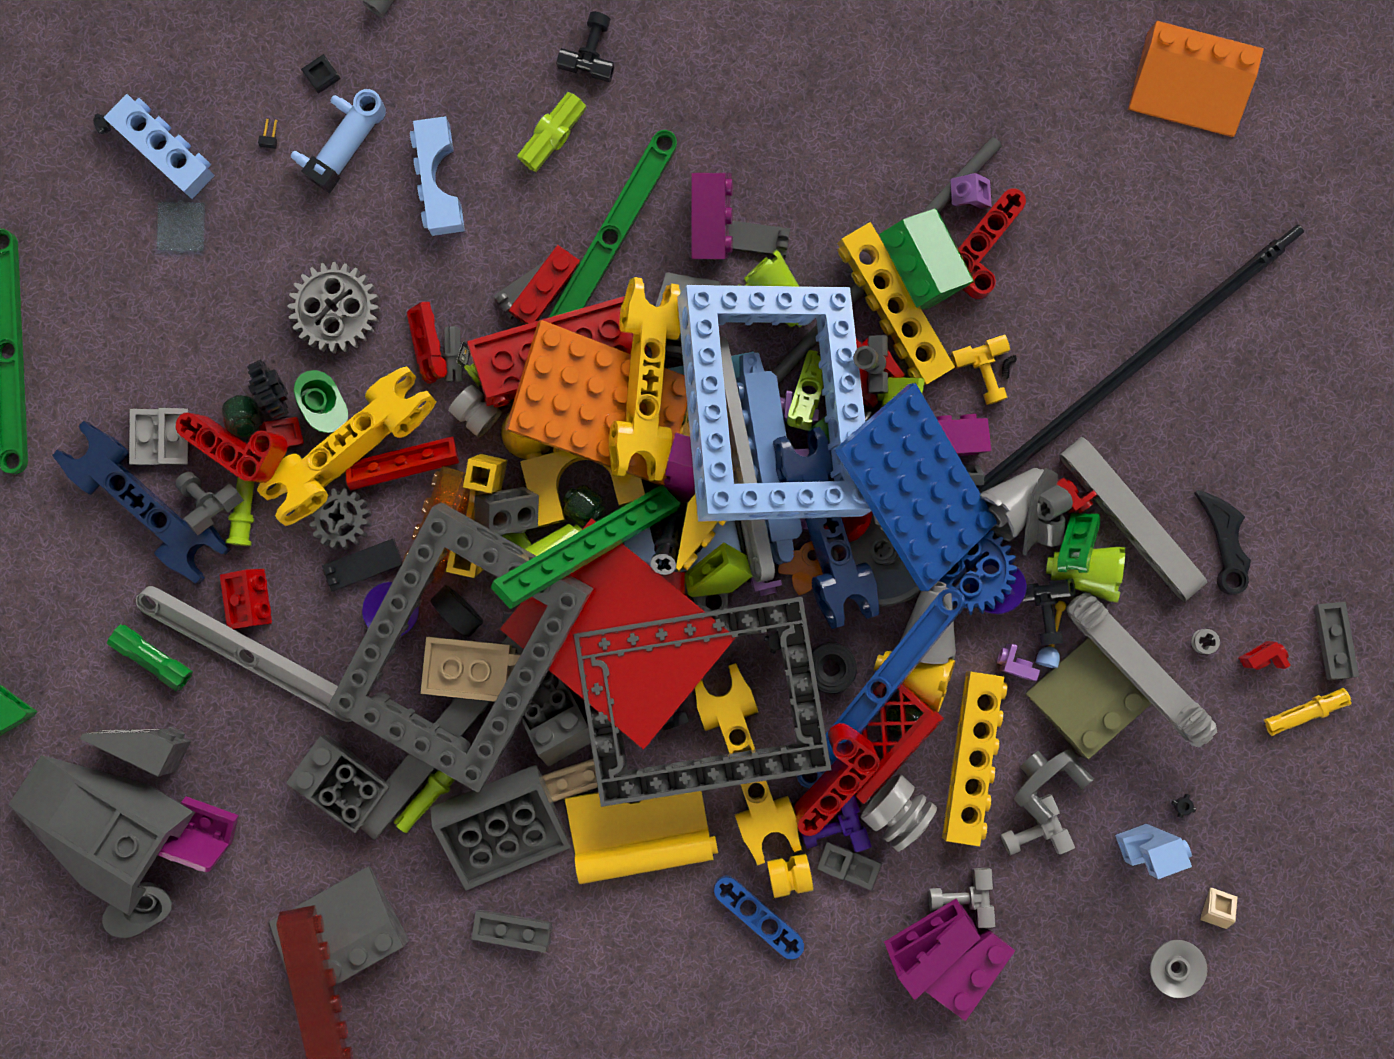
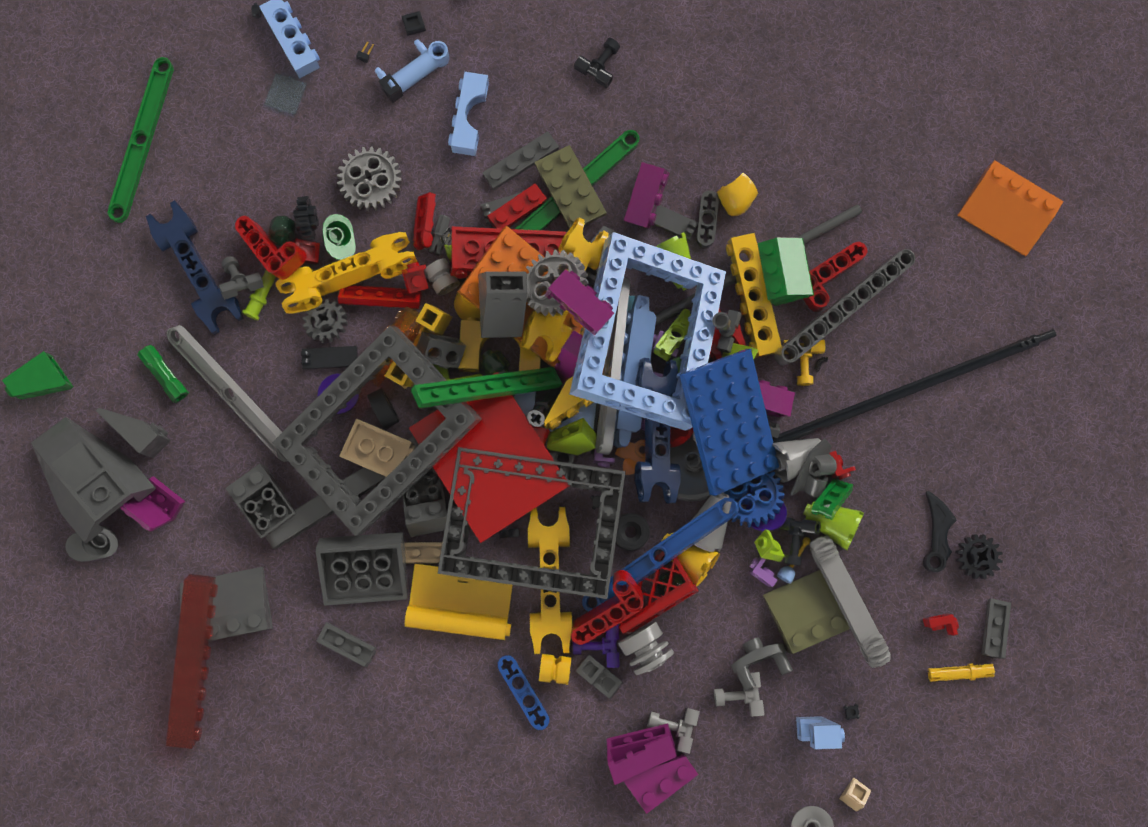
camera: 20 degrees right, 5 degrees down
(155, 438) = (219, 228): light grey slope -> none
(246, 598) = (242, 354): red bracket -> none
(437, 784) = (330, 524): lime pin -> none
(440, 424) = (415, 277): none -> red bracket
(527, 218) = (520, 160): none -> dark grey plate
(552, 132) = (556, 108): lime piece -> none
(570, 428) = (502, 303): none -> dark grey slope
(605, 235) = (570, 187): none -> olive plate
(625, 353) = (555, 265): none -> light grey gear
(676, 397) = (580, 301): none -> magenta wedge
(804, 198) = (703, 205): none -> dark grey beam
(832, 176) = (738, 195): none -> yellow piece
(971, 190) = (831, 234): medium lavender bracket -> none
(974, 830) = (683, 674): yellow brick -> none
(1015, 631) = (768, 547): none -> lime bracket
(1029, 275) = (837, 310): none -> dark grey beam
(1133, 519) = (876, 496): light grey beam -> none
(1215, 641) = (903, 605): light grey bush -> none
(1296, 546) = (987, 560): none -> black gear

